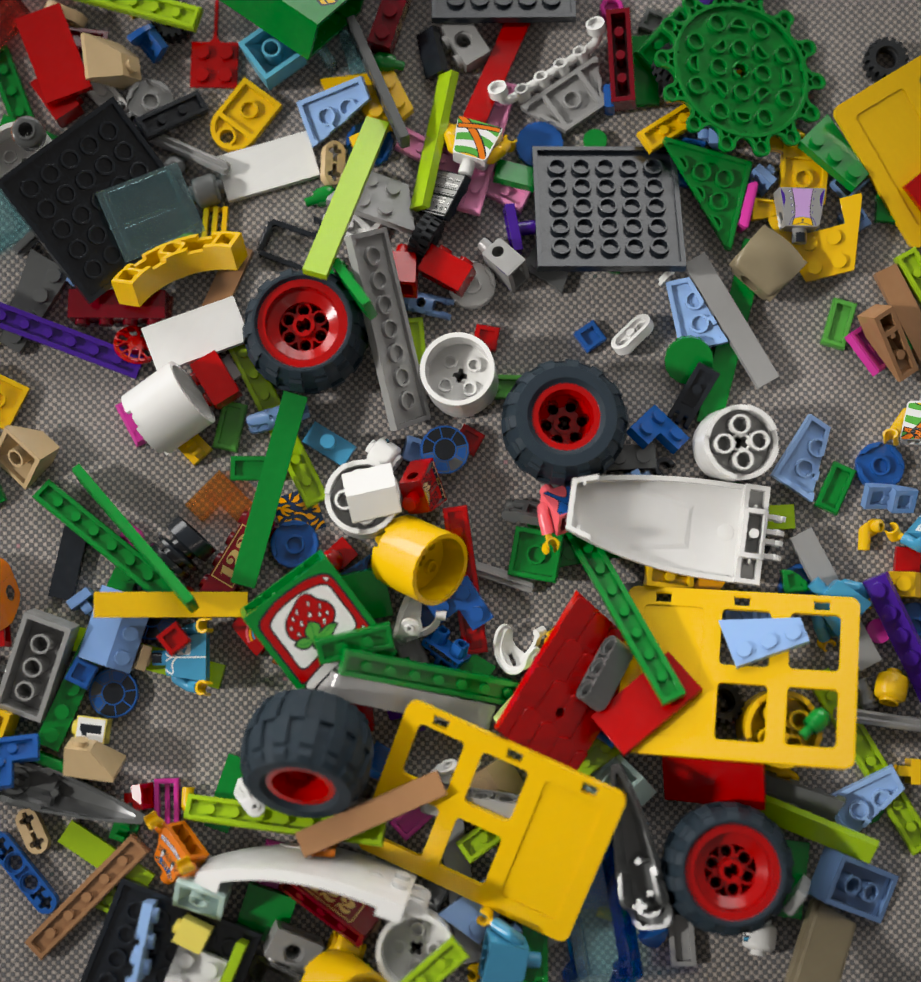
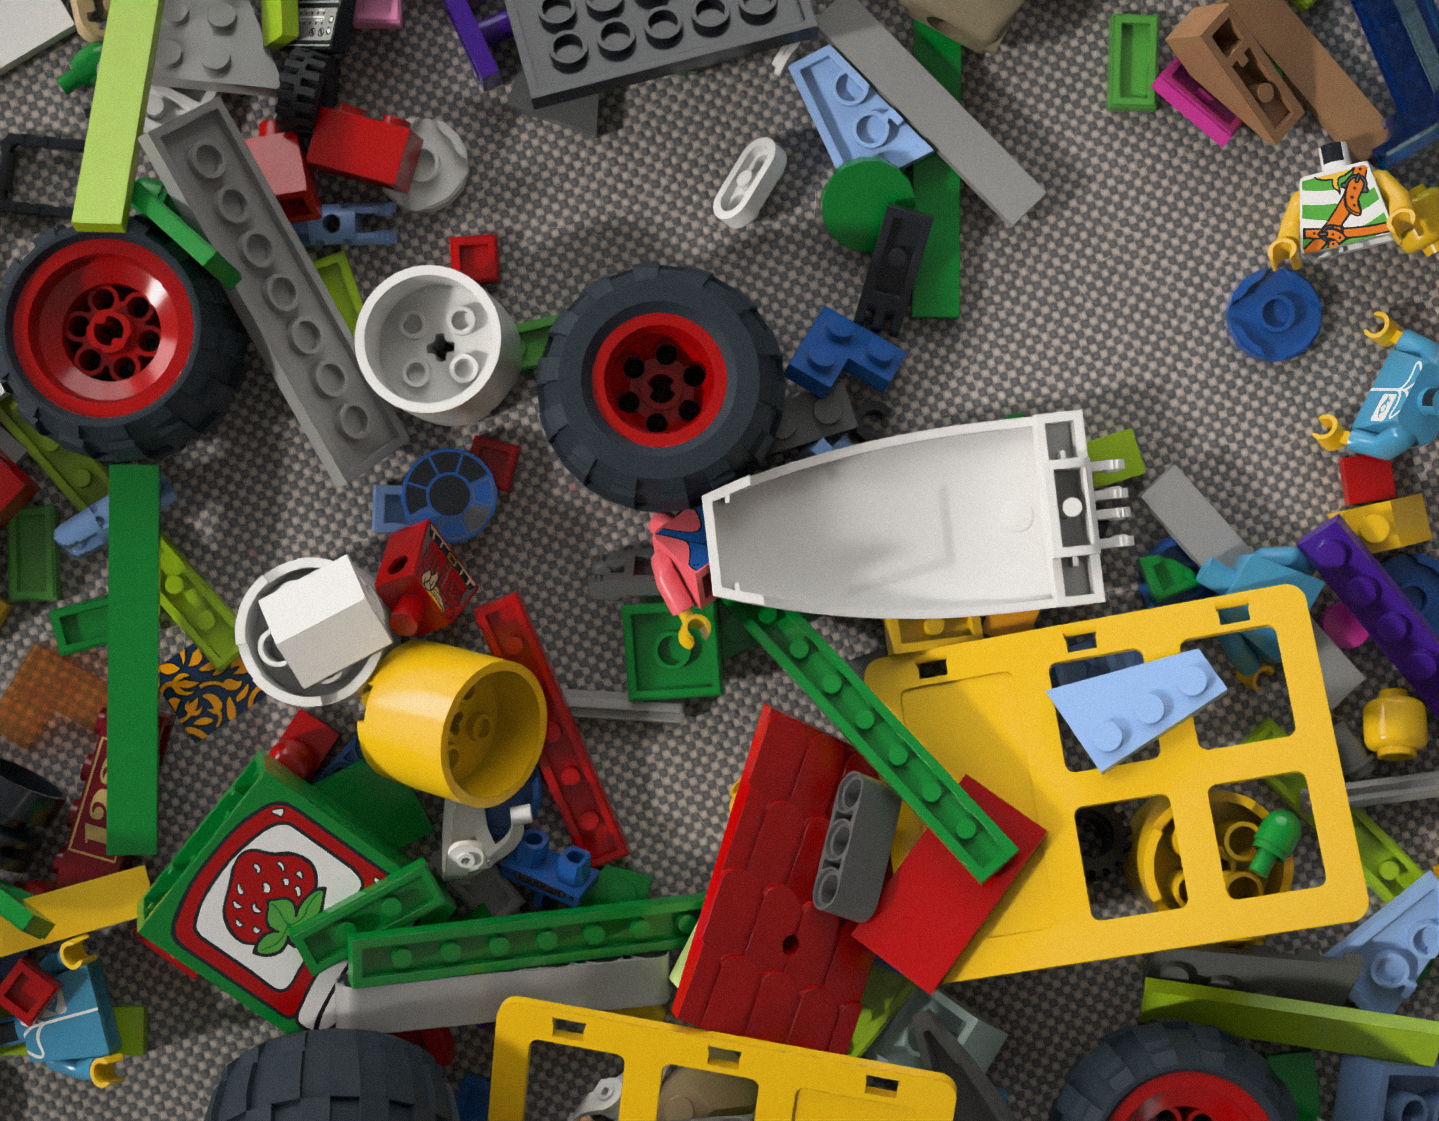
camera: 20 degrees left, 5 degrees up
(294, 543) = (213, 744): blue tile -> none
(329, 444) = (230, 539): dark azure tile -> none
(384, 452) = (337, 532): white head -> none
(468, 602) = (570, 775): blue plate -> none
(504, 262) = (471, 106): light grey torso -> none
(504, 646) = (659, 833): white helmet -> none
(590, 336) = (671, 207): blue tile -> none
(714, 781) = (1114, 994): red tile -> none
(715, 444) = (960, 359): white brick -> none
(802, 458) = (1126, 339): light blue wing -> none
(834, 488) = (1200, 377): green tile -> none
(867, 531) = (1282, 442): yellow arm -> none
(890, 497) = (1309, 368): medium blue slope -> none

